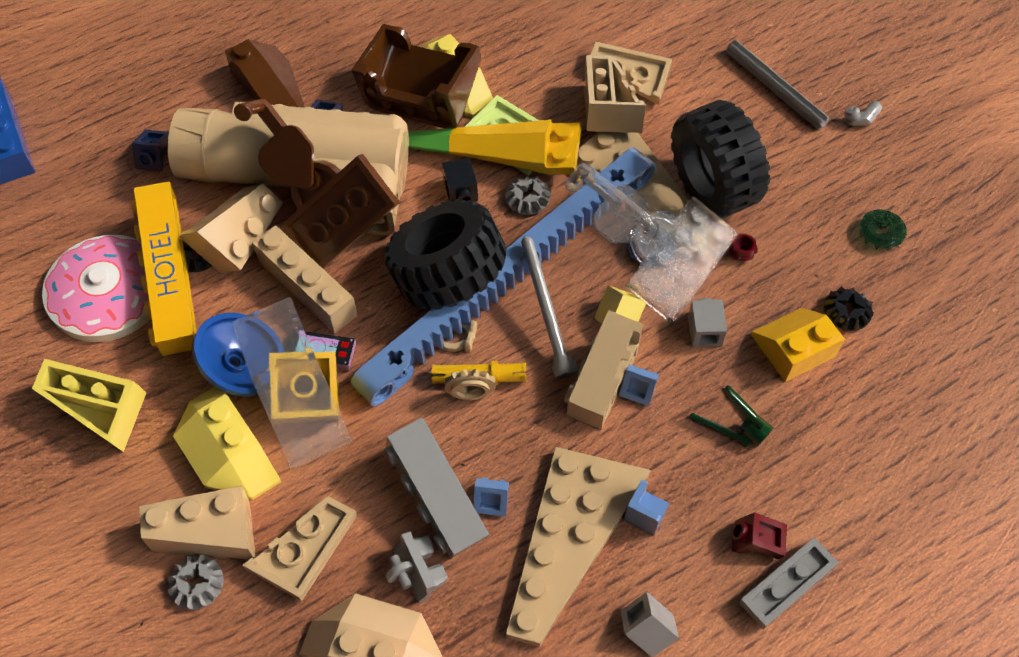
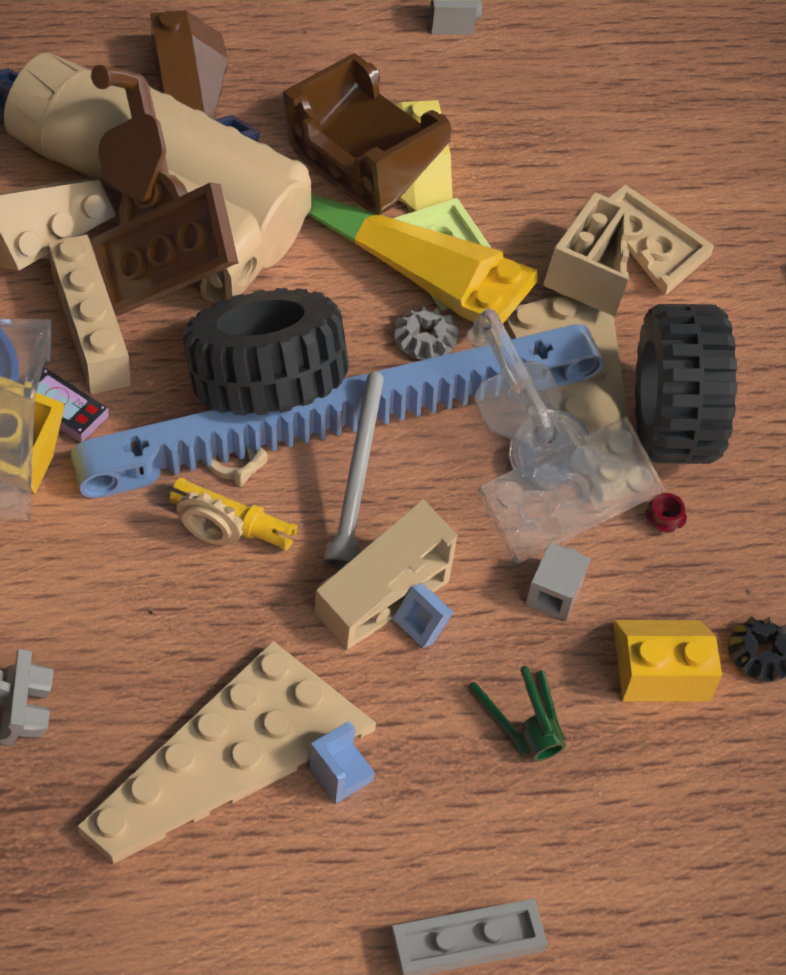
camera: 20 degrees right, 5 degrees down
(435, 488) = (92, 617): light grey wedge -> none
(460, 180) = (348, 279): black brick -> none
(491, 496) = (156, 661): medium blue tile -> none
(620, 303) = (462, 513): light yellow panel -> none
(649, 624) = (259, 900): light grey panel -> none
(760, 535) = (467, 865): dark red bracket -> none

